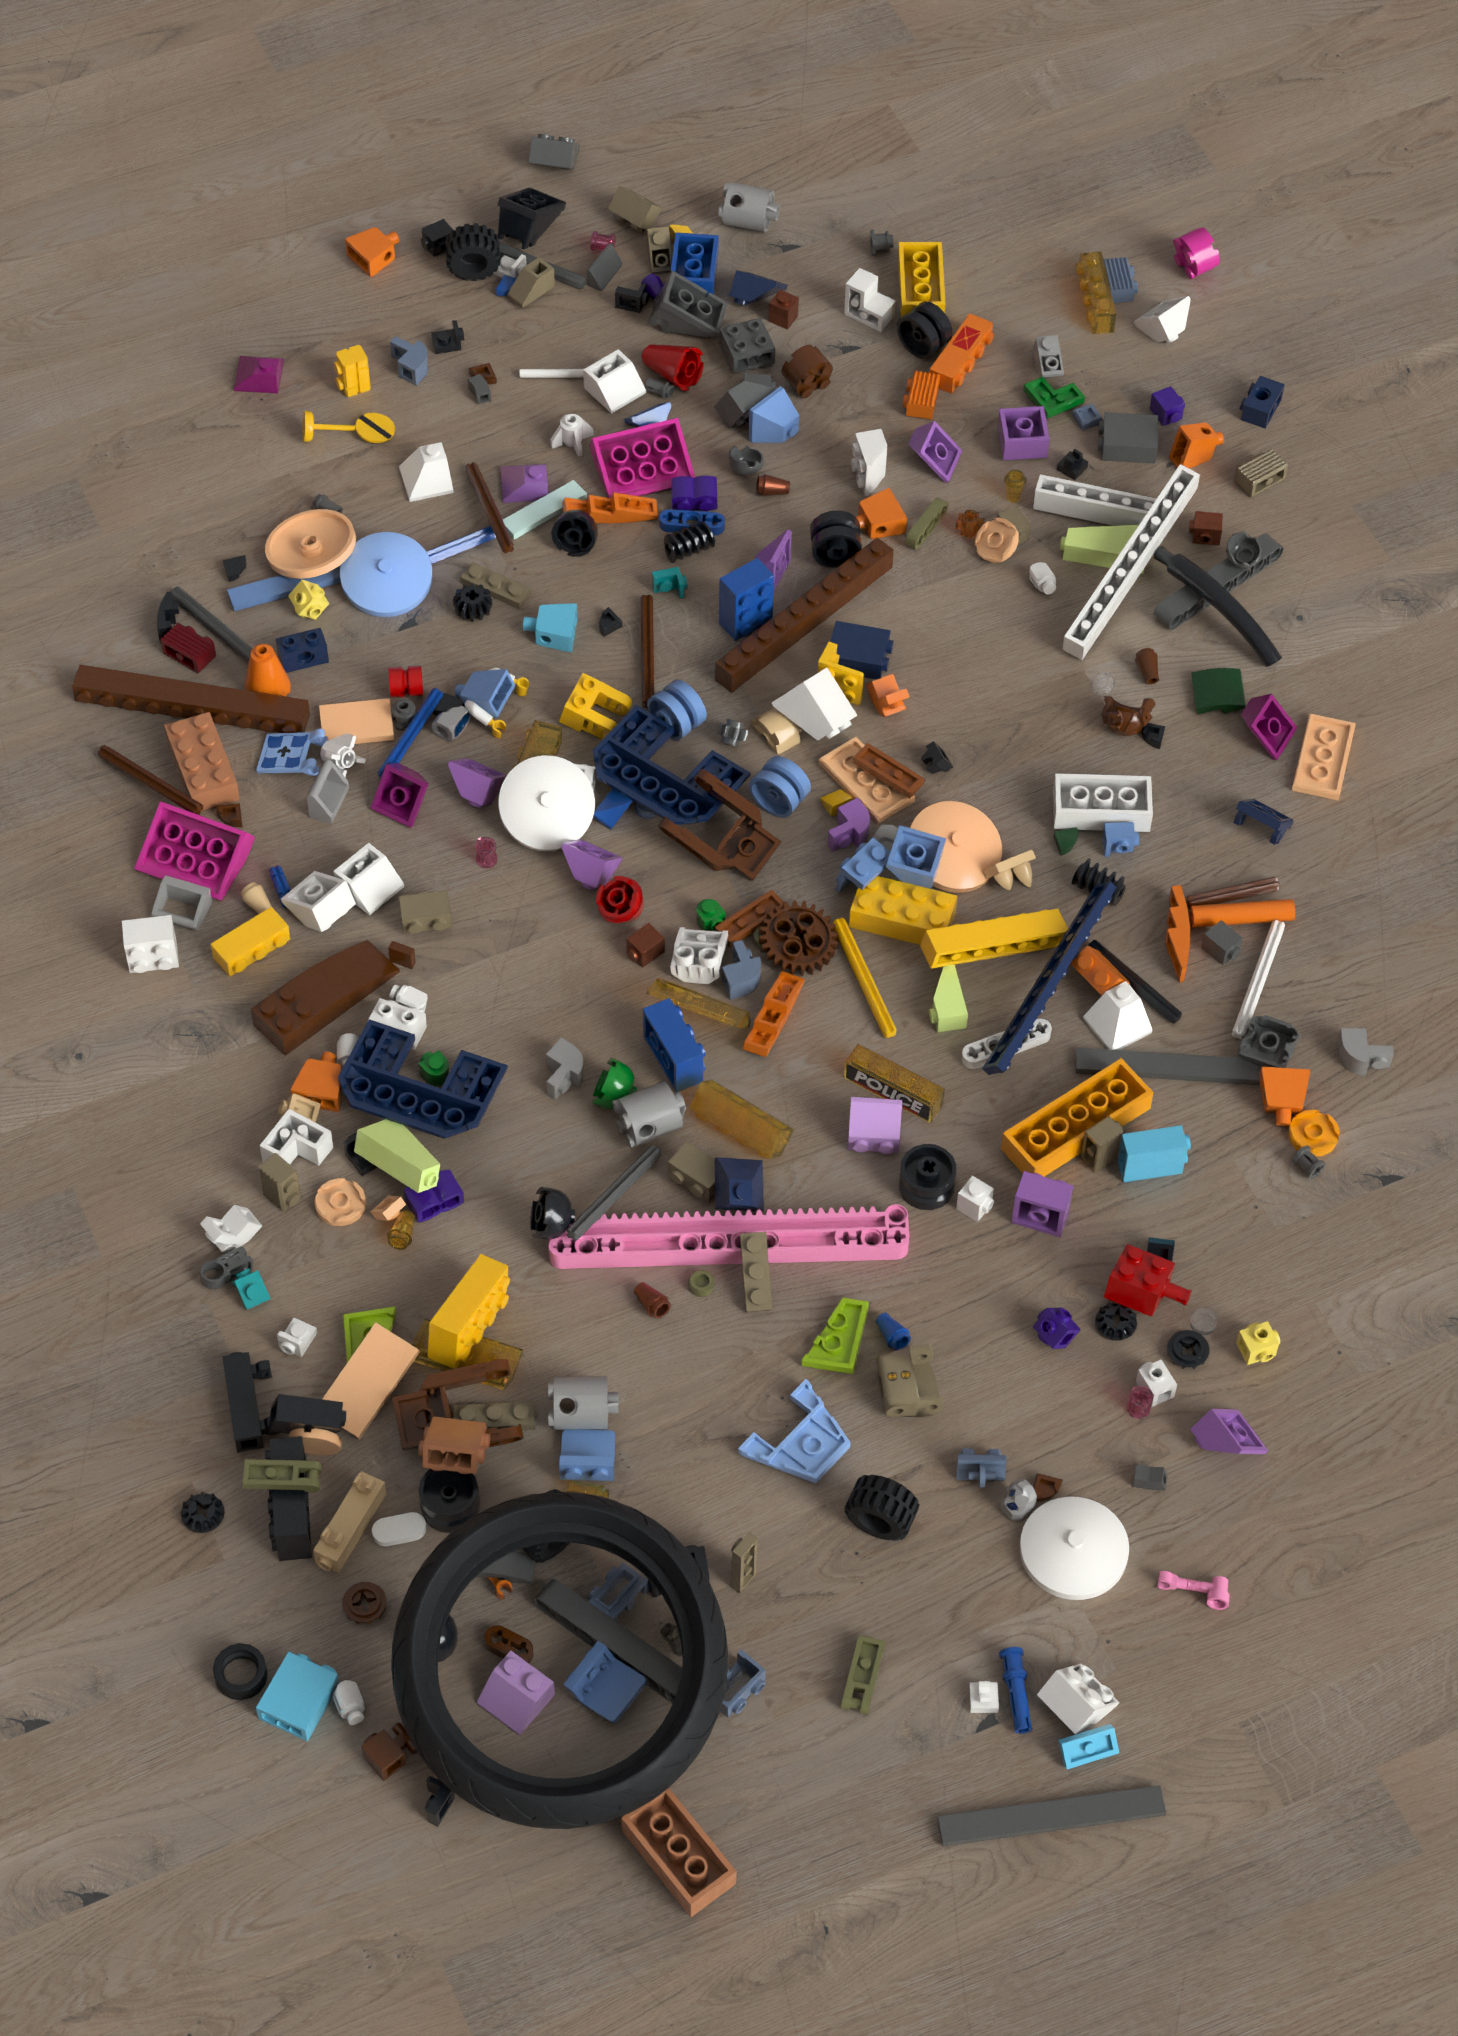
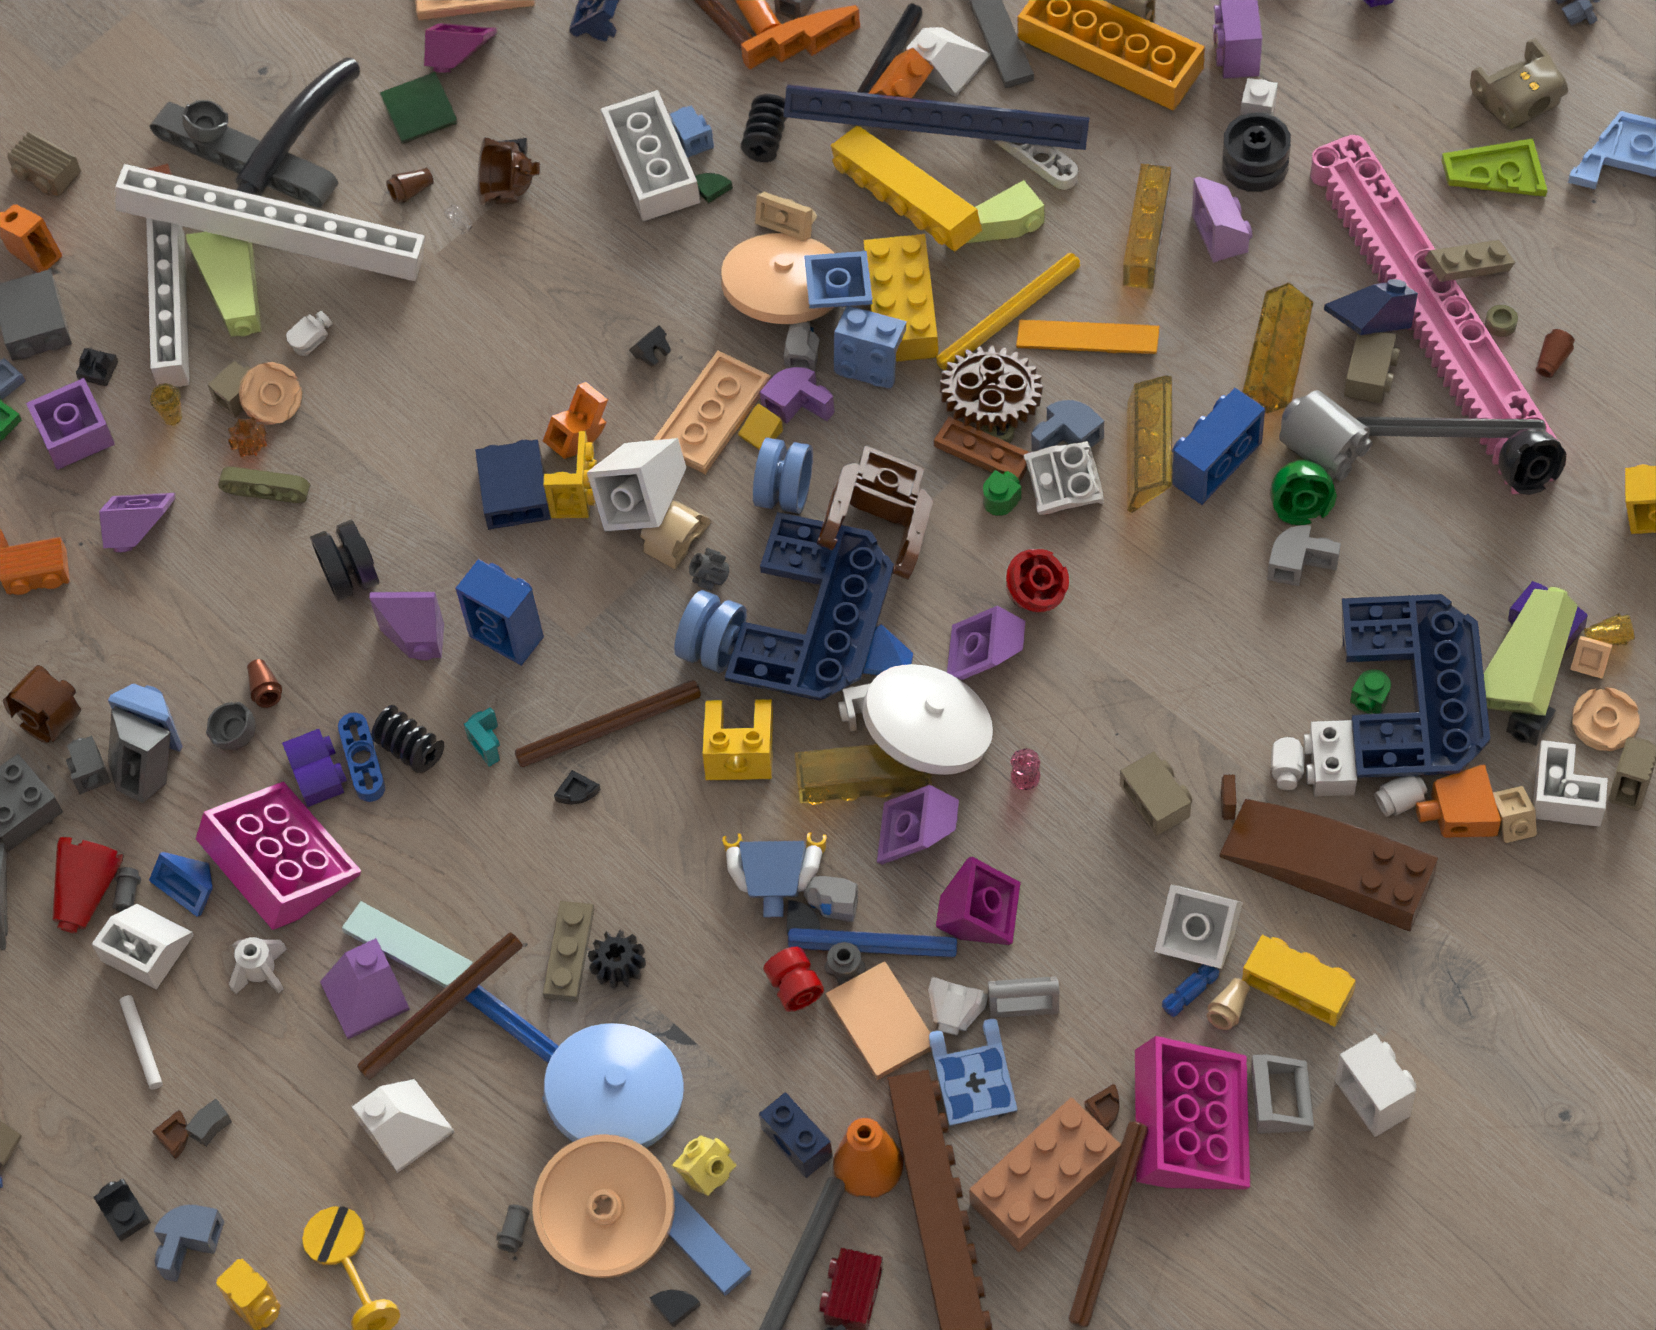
camera: 105 degrees left, 5 degrees up
(370, 878) = (1136, 884): white slope -> none
(554, 626) = (617, 841): medium azure torso -> none
(575, 533) = (444, 877): black cylinder -> none
(617, 509) = (379, 861): orange slope -> none
(645, 945) = (1080, 541): copper brick -> none
(773, 1014) = (1101, 379): orange slope -> none
(803, 615) = (457, 551): reddish brown brick -> none
(818, 1018) = (1088, 336): none -> light orange piece
(869, 459) = (189, 571): white slope -> none
(882, 515) = (270, 539): orange torso -> none
(888, 770) = (699, 380): dark orange plate -> none
(893, 1332) = (1464, 122): blue cone -> none

